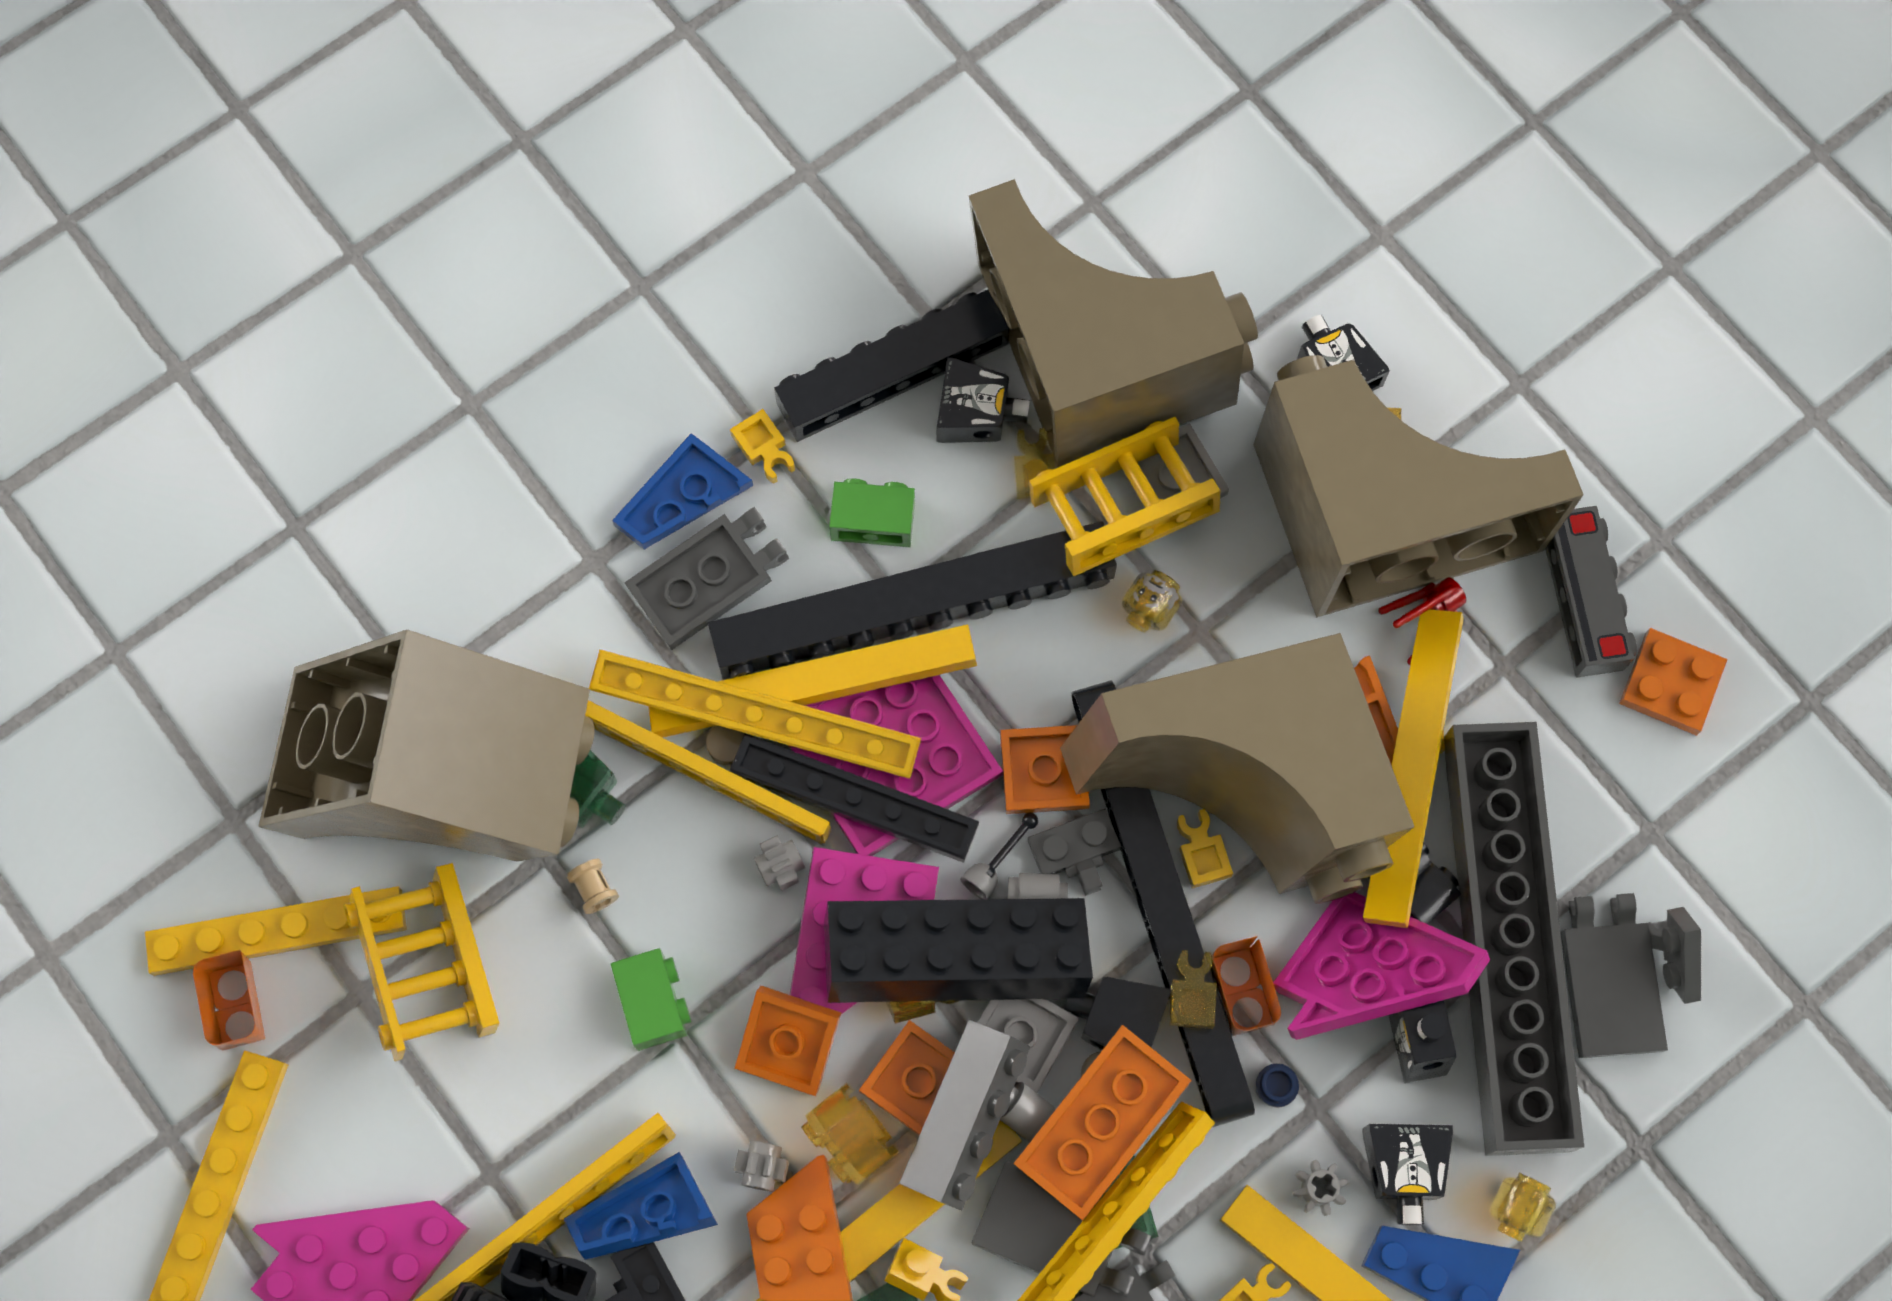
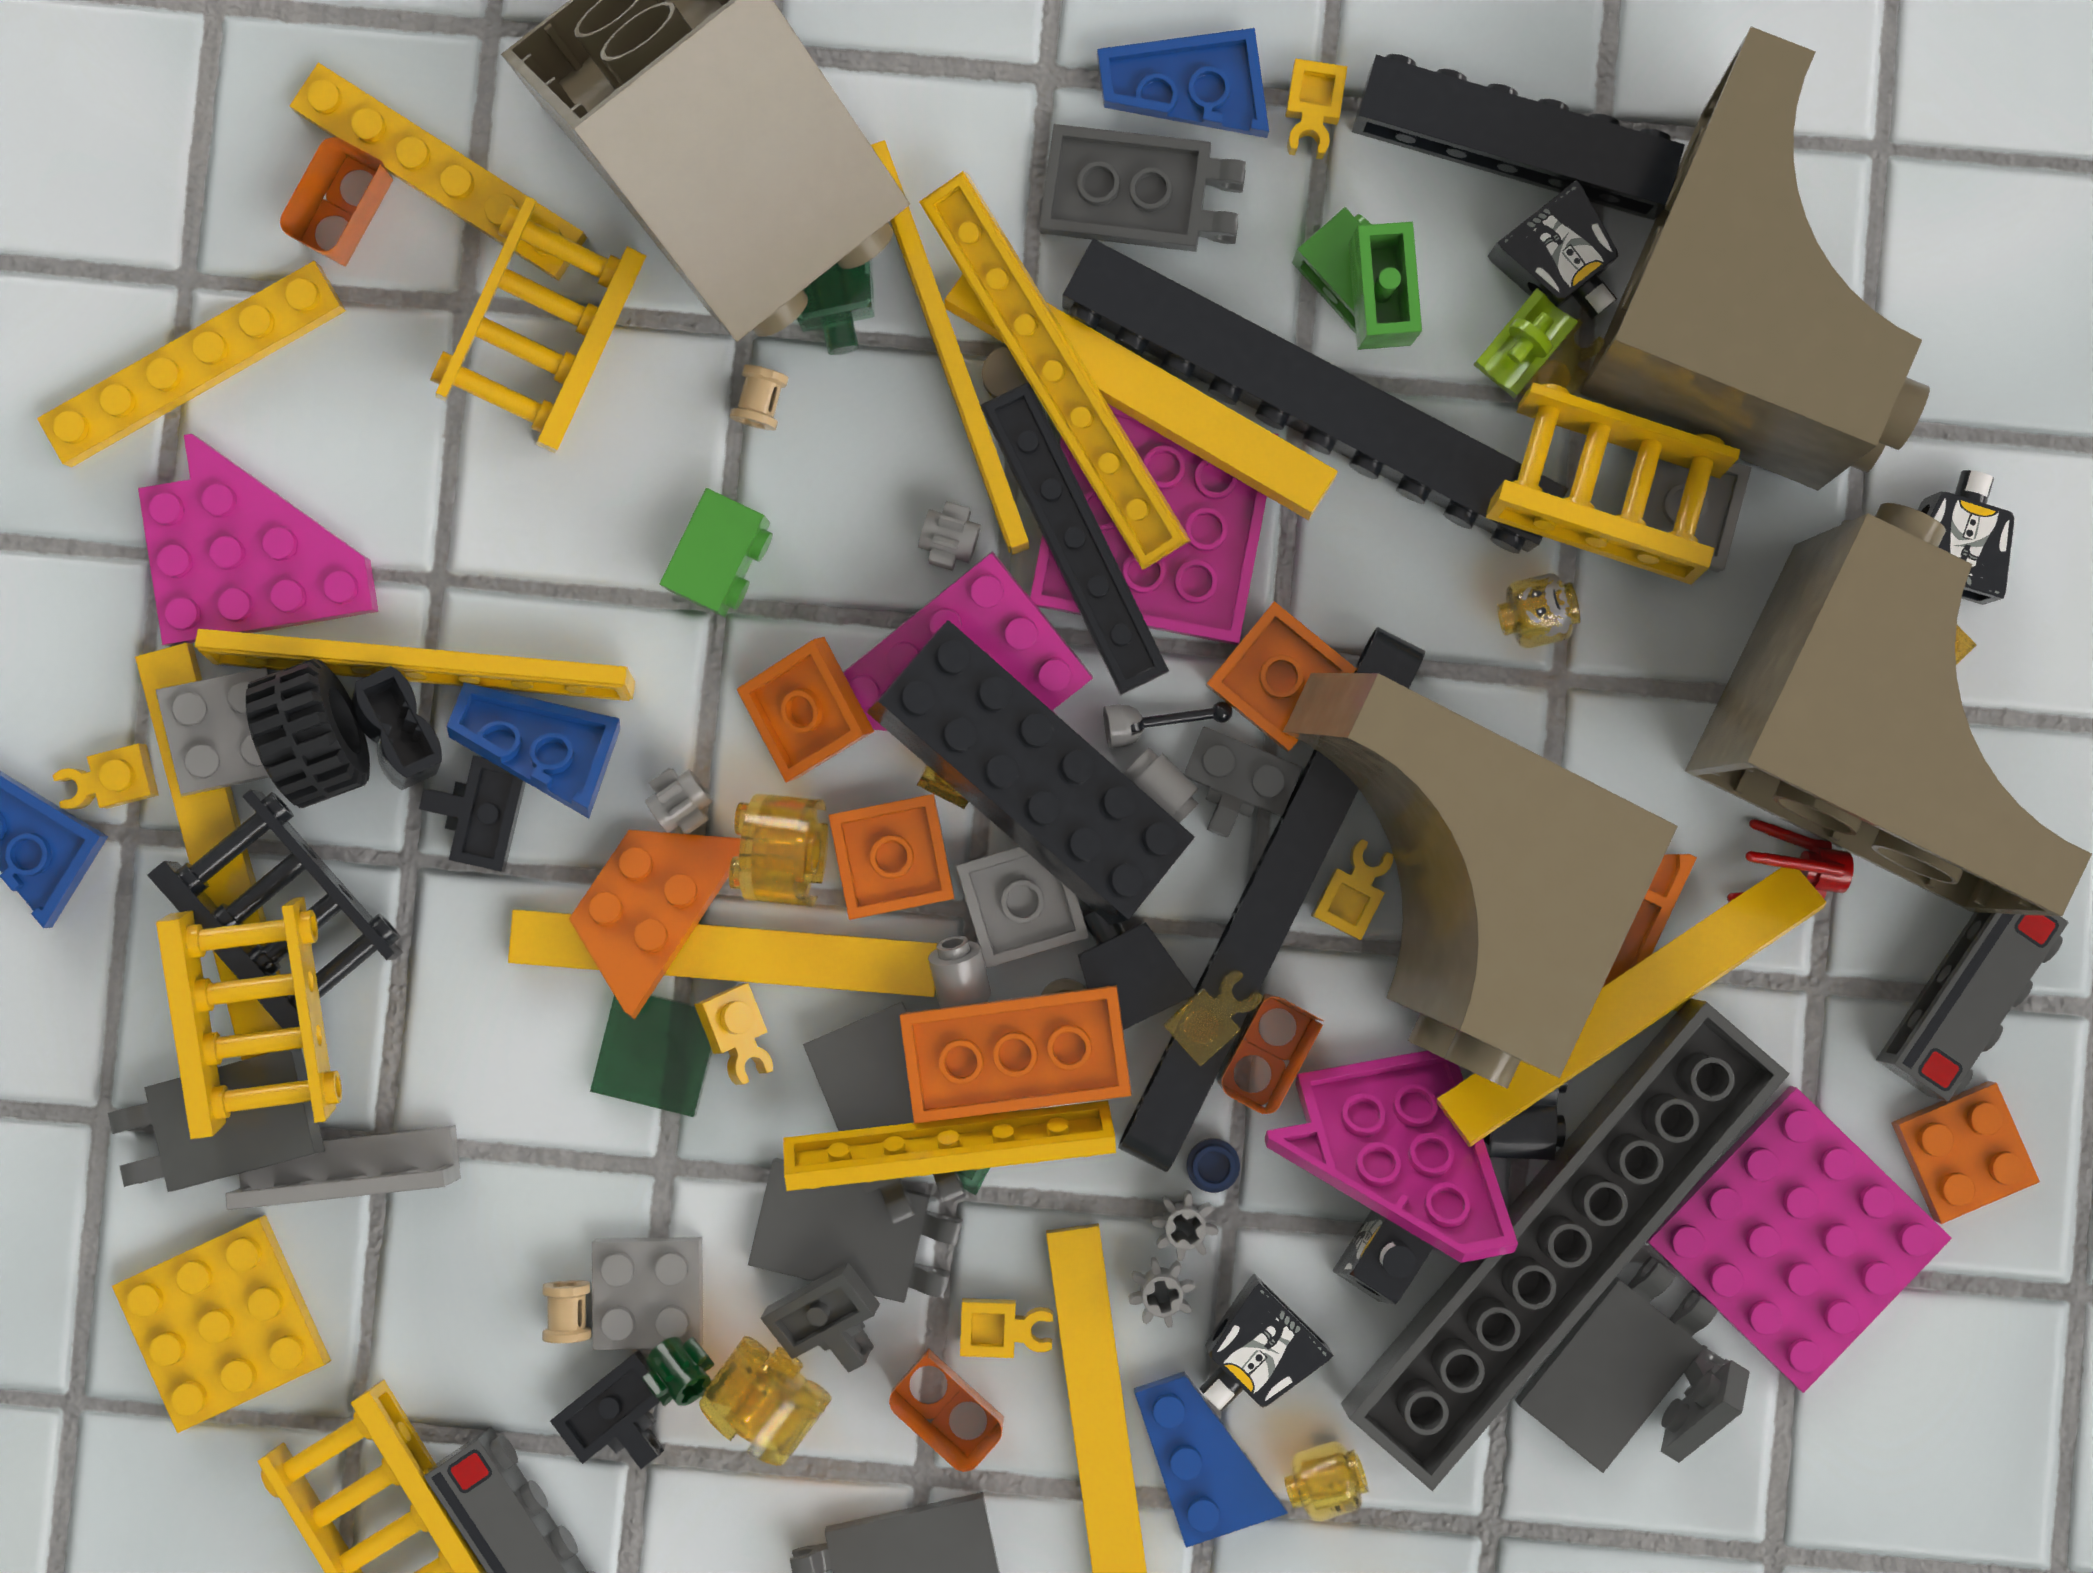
camera: 45 degrees right, 15 degrees up
(899, 500) = (1385, 285): none -> bright green brick
(965, 1115) = (897, 931): brick -> none
(1003, 467) = (1525, 343): none -> lime hips
(1304, 1128) = (1180, 1239): none -> light grey gear
(1635, 815) = (1798, 1238): none -> dark pink plate

